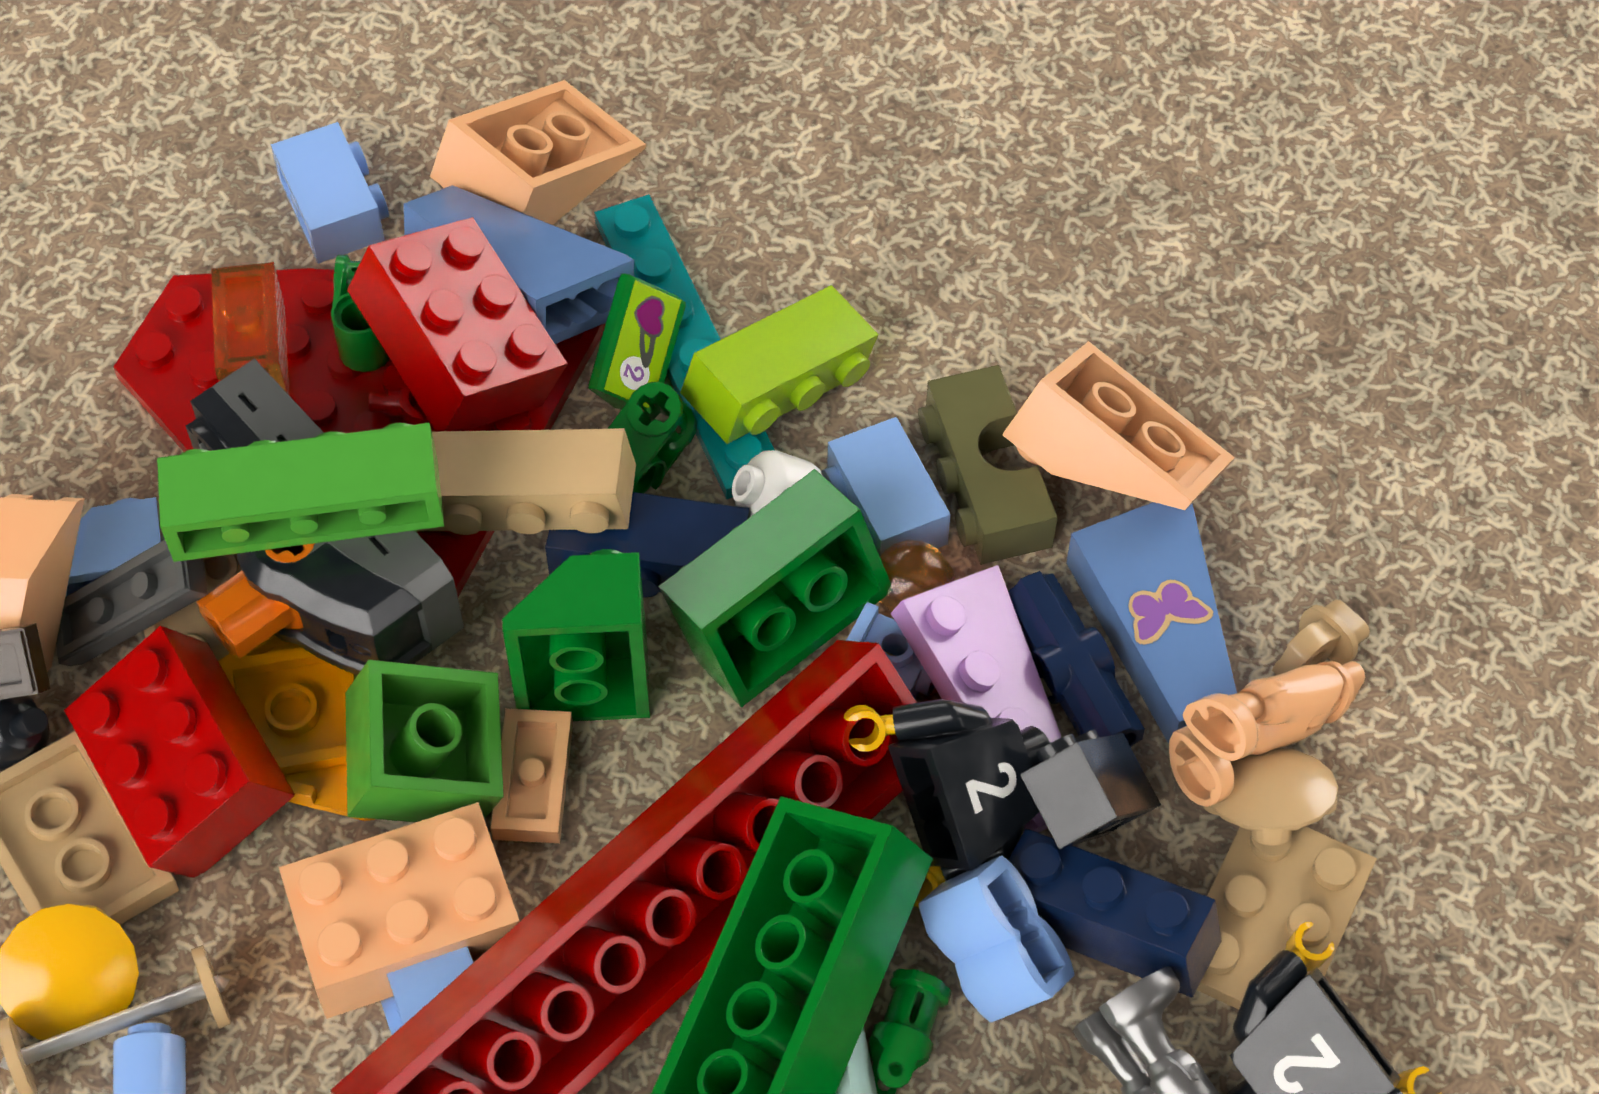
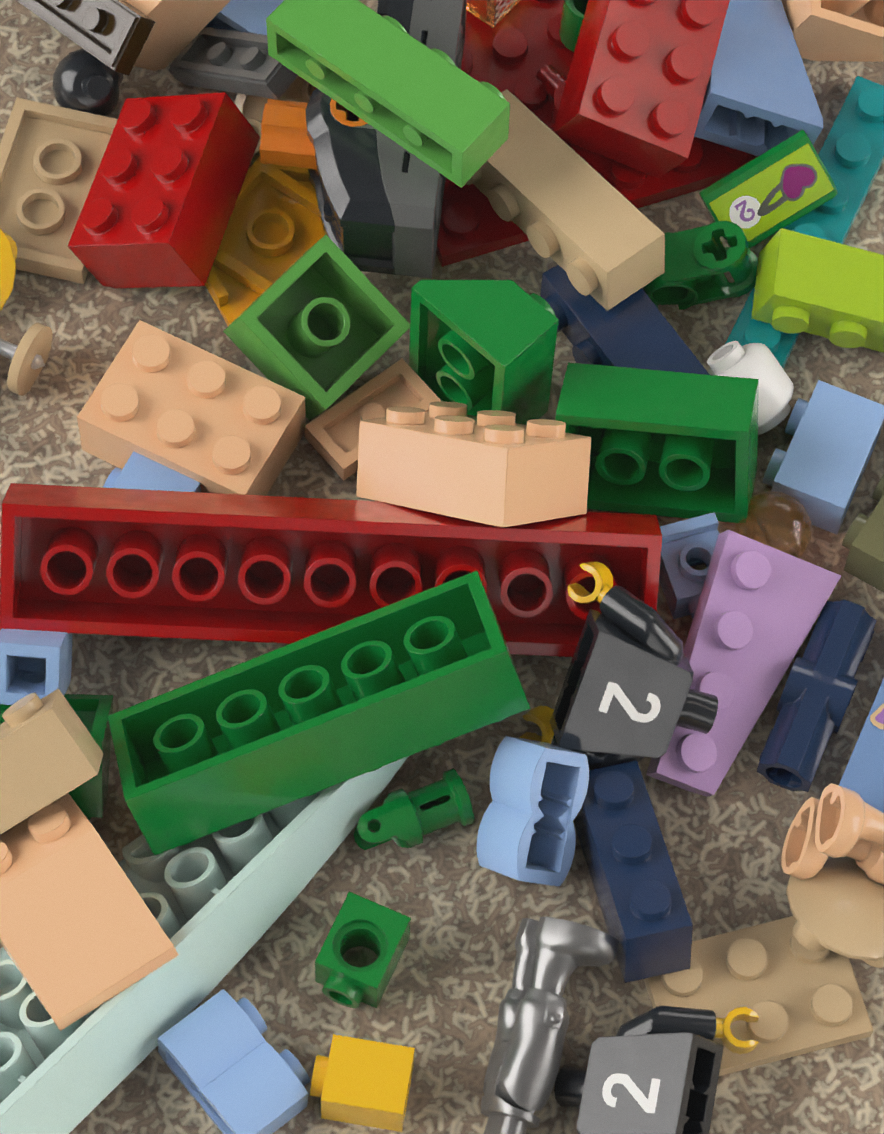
camera: 45 degrees right, 5 degrees up
(675, 728) = (473, 465): none -> light nougat brick
(1088, 787) = (708, 775): brick -> none

